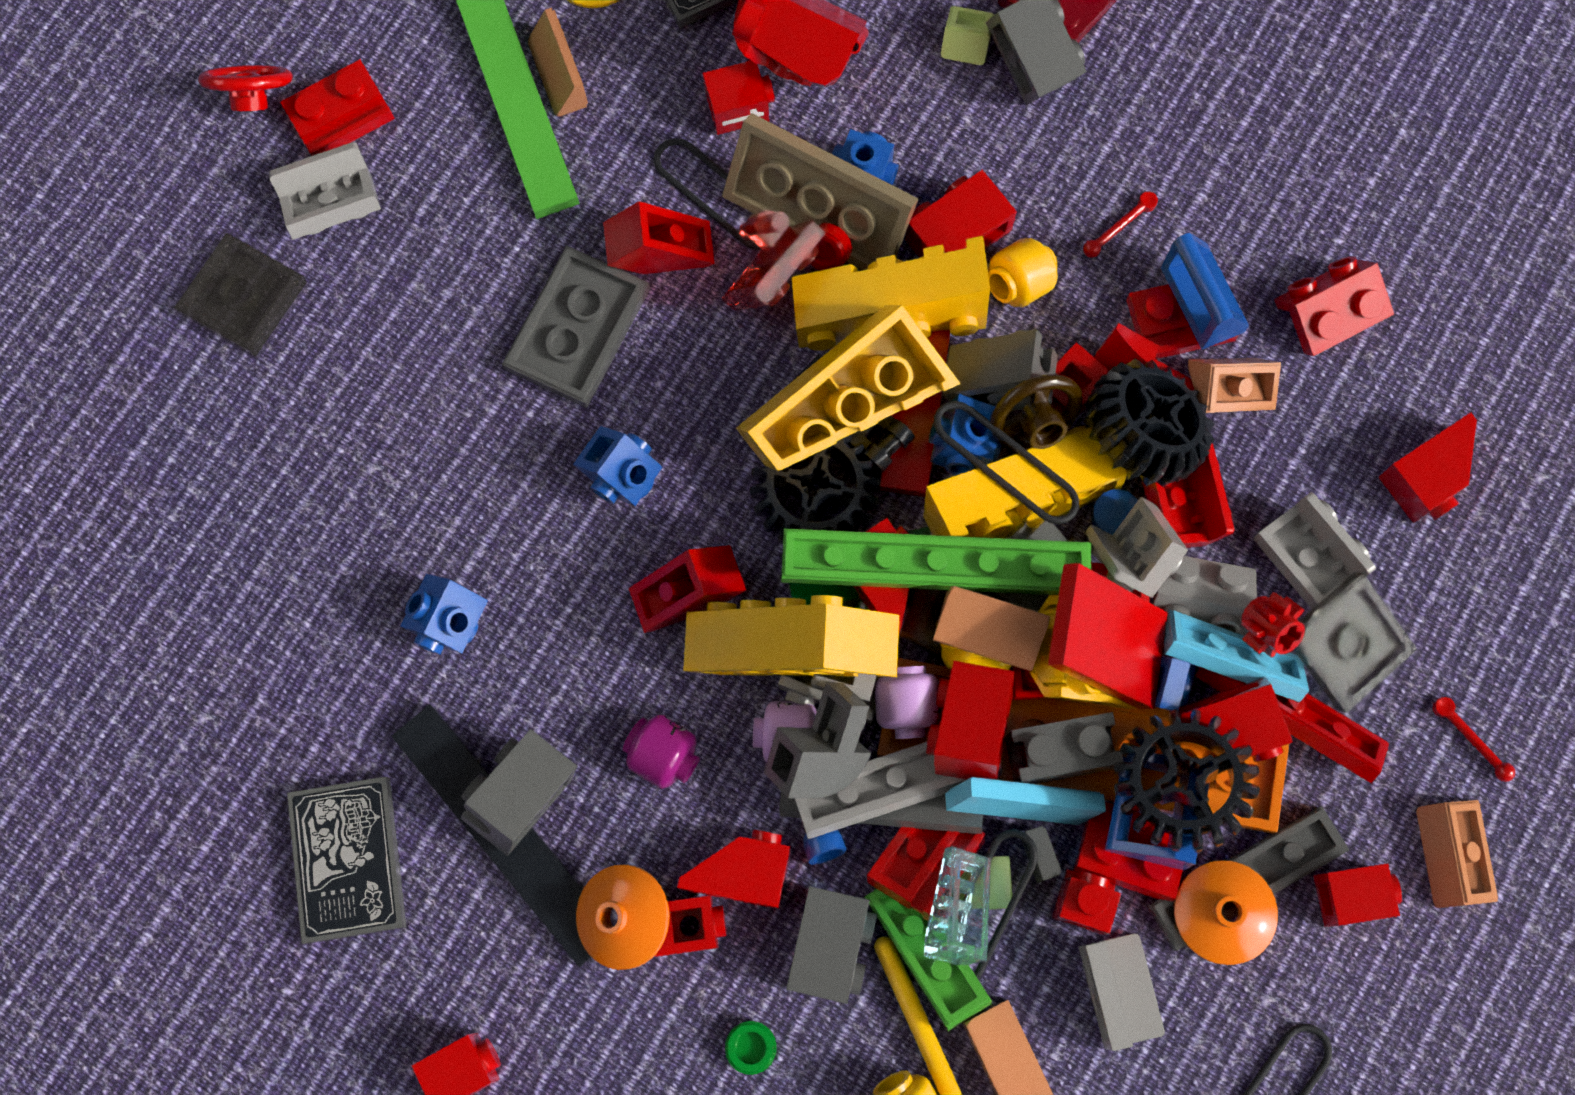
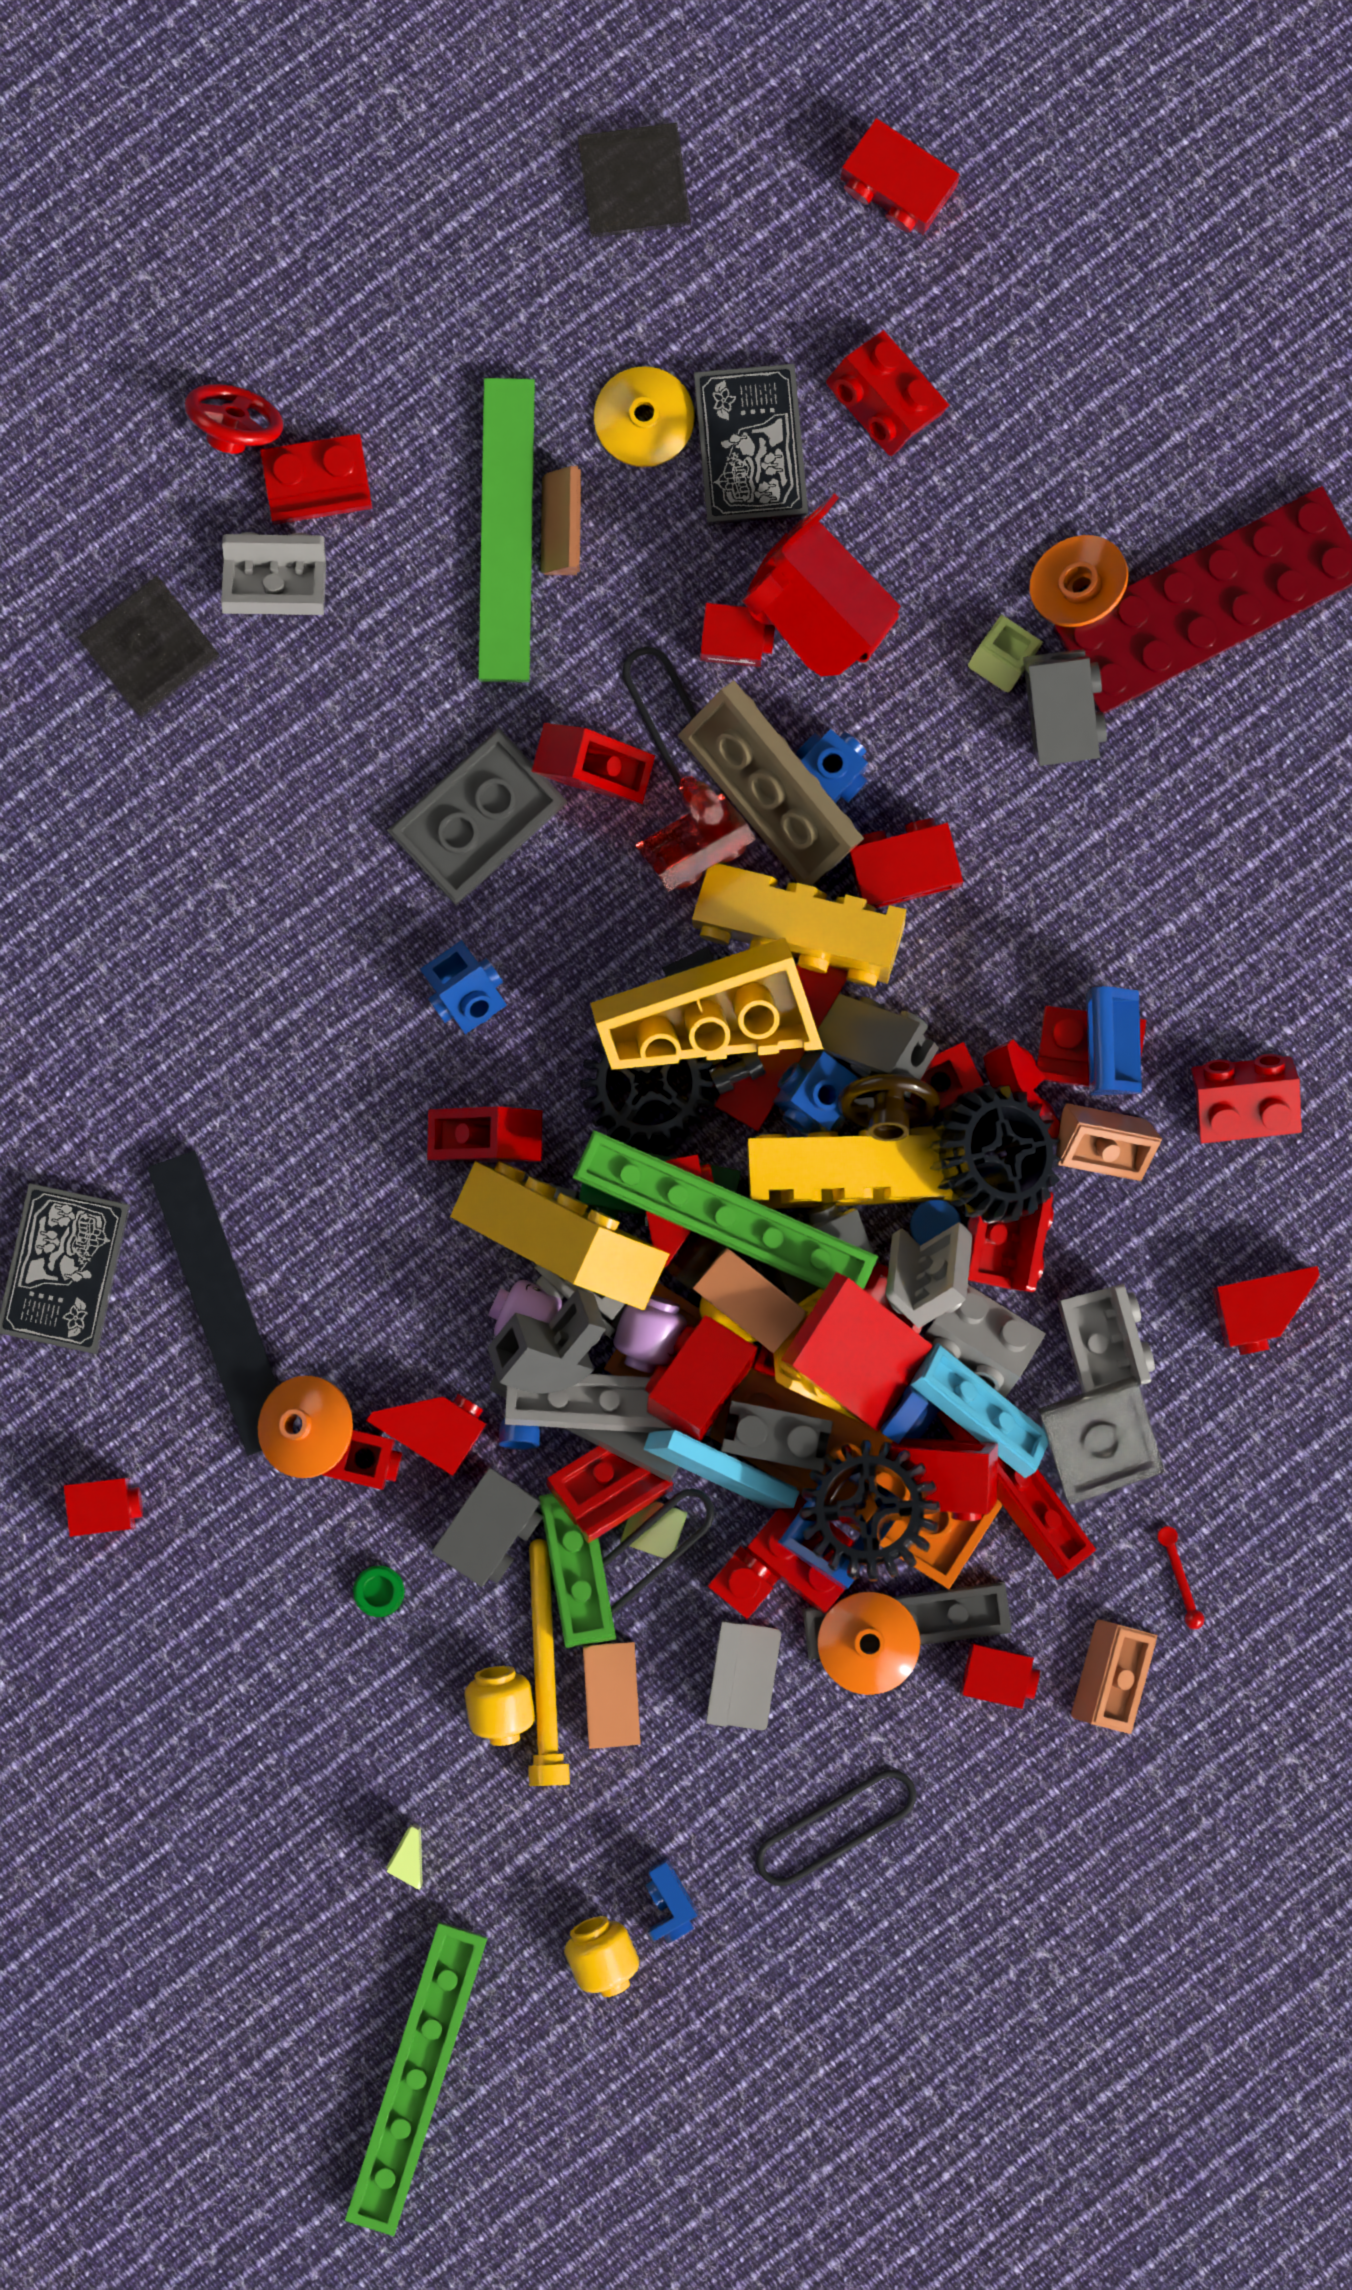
camera: 15 degrees right, 10 degrees up
(443, 615) = (238, 1070): blue brick -> none
(517, 791) = (250, 1271): dark grey brick -> none
(661, 751) = (399, 1284): magenta head -> none
(833, 248) = (769, 837): red tile -> none
(946, 937) = (598, 1548): clear light blue slope -> none
(993, 475) = (818, 1151): black piece -> none
(1022, 272) = (946, 943): yellow head -> none
(1047, 863) = (720, 1530): dark grey tile -> none
(1146, 203) = (1110, 913): red hinge -> none
(1273, 624) = (1025, 1397): red gear -> none

